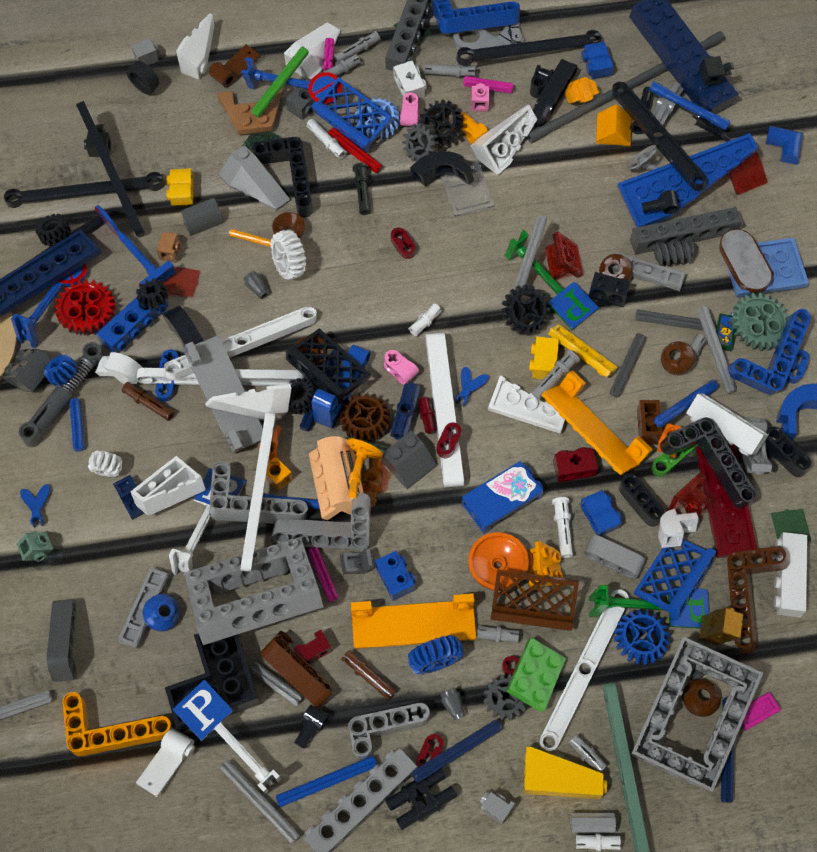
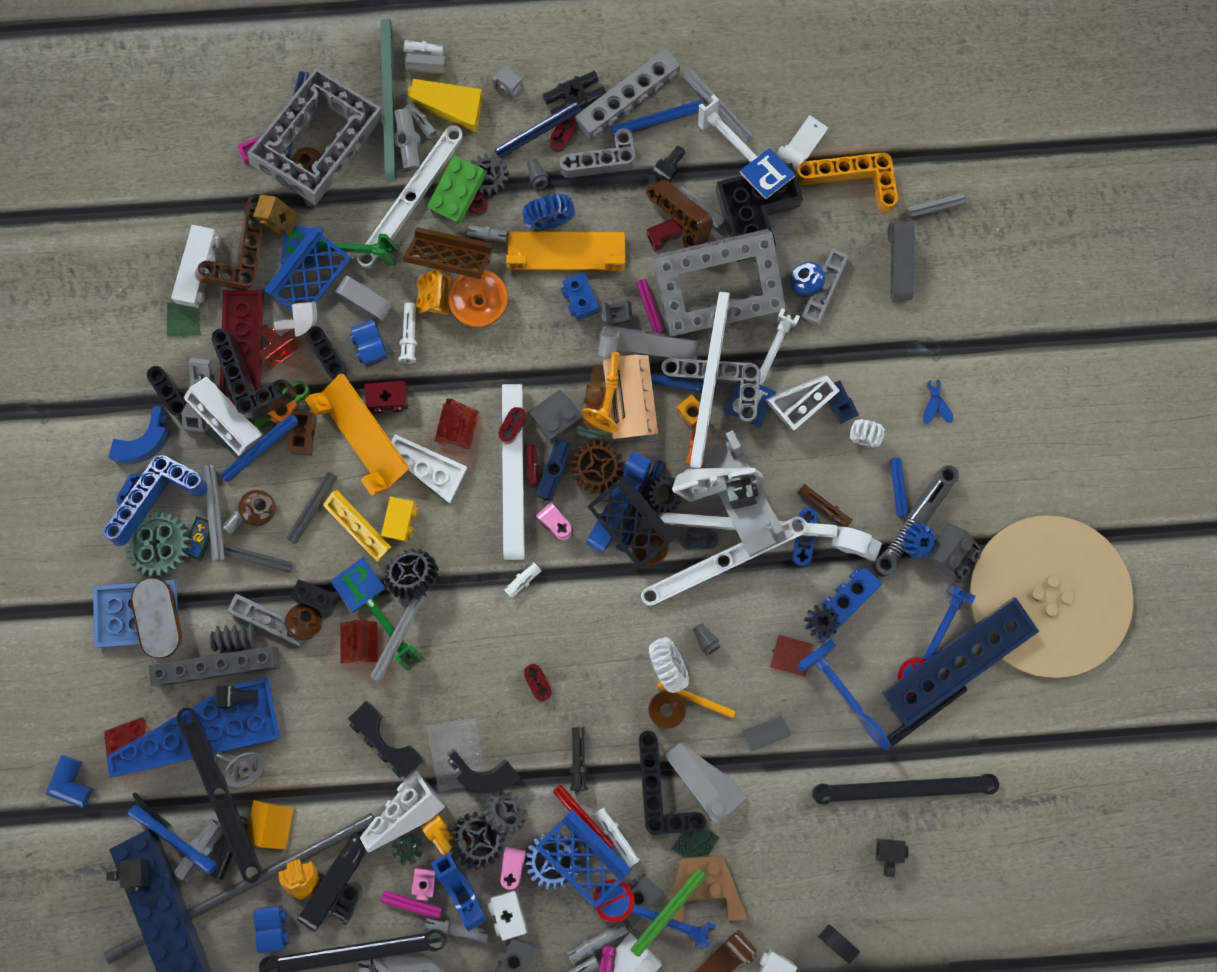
camera: 175 degrees left, 15 degrees up
(34, 546) = (933, 352): sand green brick -> none
(52, 229) = (946, 736): black tyre -> none
(102, 307) = (915, 626): red gear -> none
(112, 173) = (876, 807): black beam -> none
(168, 247) = (804, 697): medium nougat brick -> none
(180, 186) = (791, 779): yellow brick -> none
(182, 326) = (786, 580): black arch -> none
(225, 386) = (741, 492): none -> pearl dark grey brick
(266, 362) = (698, 534): none -> black beam
(361, 668) = (619, 212): reddish brown pin -> none
(446, 88) = (460, 890): none -> blue arch
(469, 386) = (484, 498): blue piece -> none
(496, 114) = (400, 848): none -> clear green piece
(501, 496) = (464, 367): blue panel -> none
(503, 442) = (456, 424): none -> clear red bracket
(510, 177) = (367, 721): none -> black arch
(561, 368) = (383, 497): light grey pin -> none
(598, 728) = (407, 139): none -> light grey piece
(631, 622) = (364, 208): blue gear -> none

